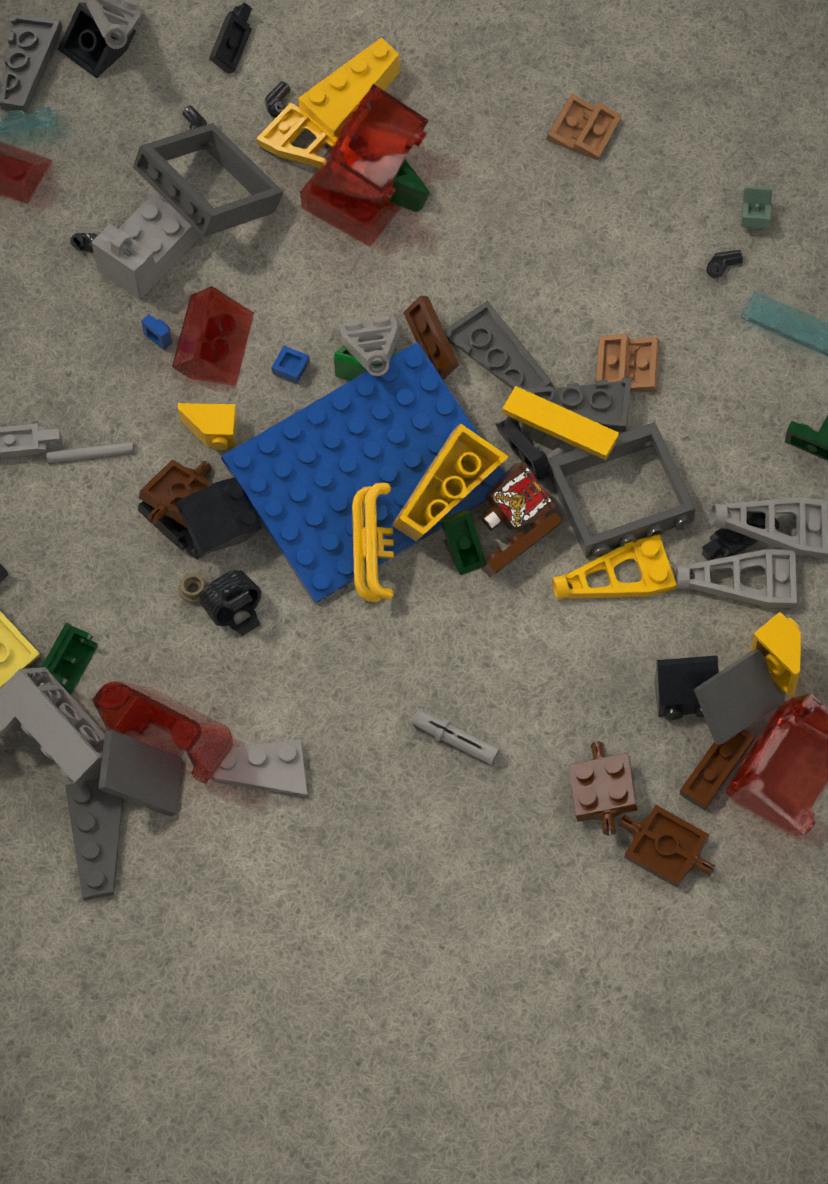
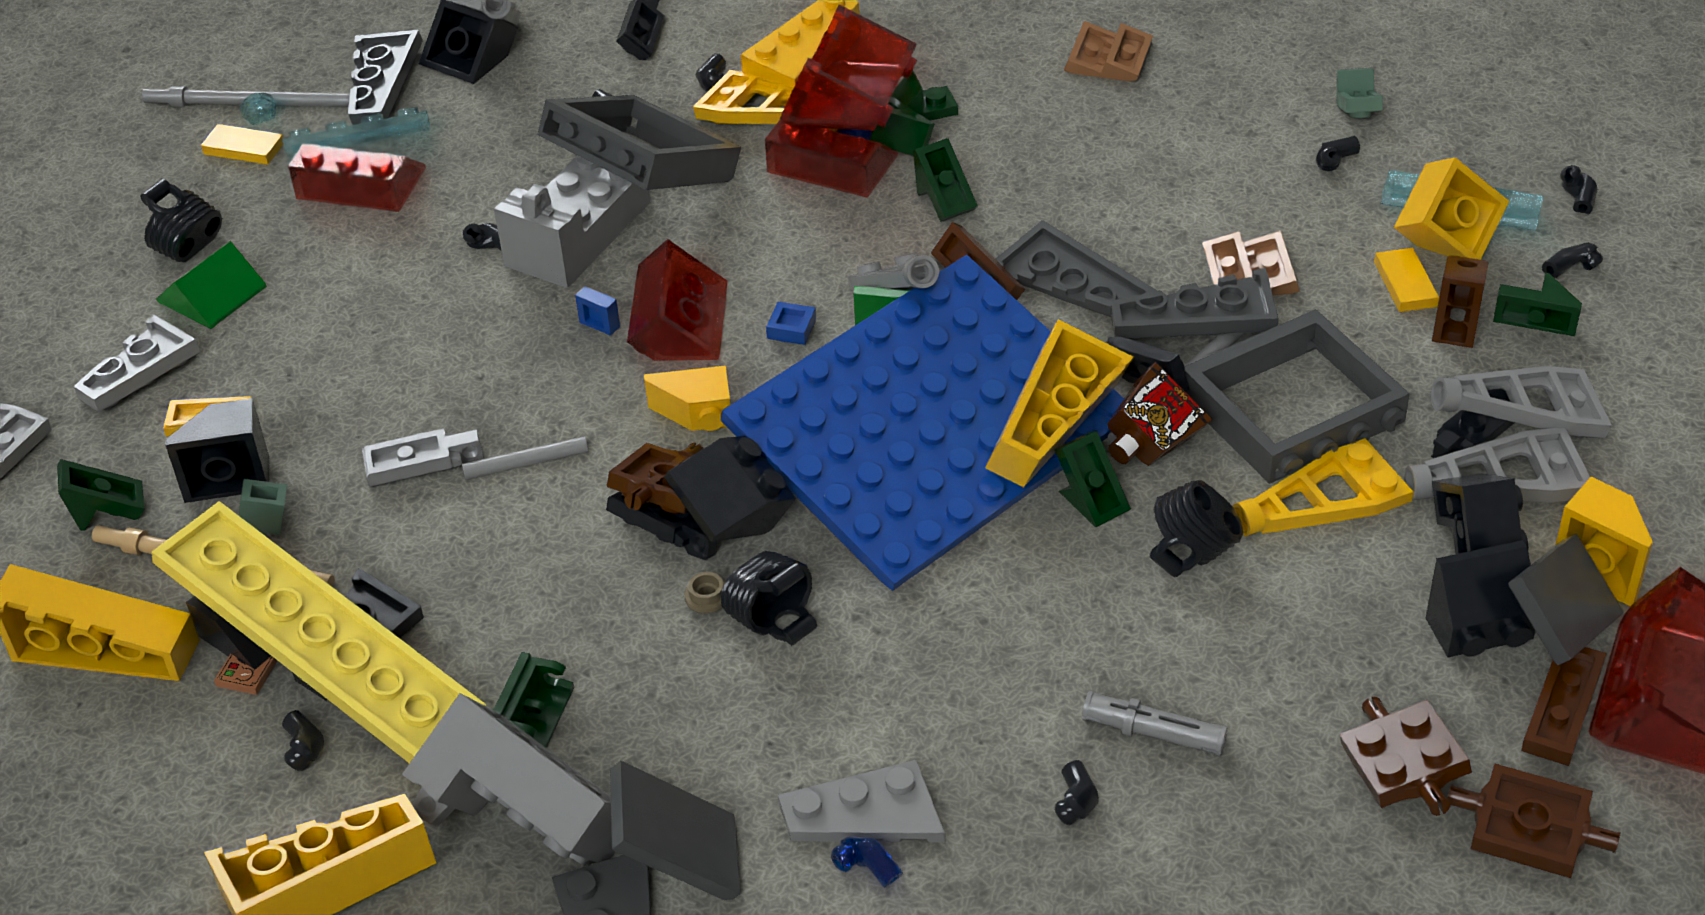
camera: 10 degrees left, 20 degrees down
(133, 707) = (703, 748): clear red windscreen -> none
(259, 801) = (866, 853): none -> clear blue arm
(369, 543) = (963, 491): yellow piece -> none
(397, 781) = (1080, 796): none -> black arm
(425, 249) = (943, 179): none -> dark green slope
(431, 160) = (930, 103): none -> dark green slope
(519, 592) = (1198, 519): none -> black piece
(521, 543) = (1175, 471): reddish brown plate -> none
(560, 423) = (1189, 323): yellow tile -> none
(708, 619) = (1479, 510): none -> black brick
(735, 394) = (1406, 279): none -> yellow tile
(765, 415) = (1461, 289): none -> reddish brown torso
(782, 345) = (1451, 210): none -> yellow slope

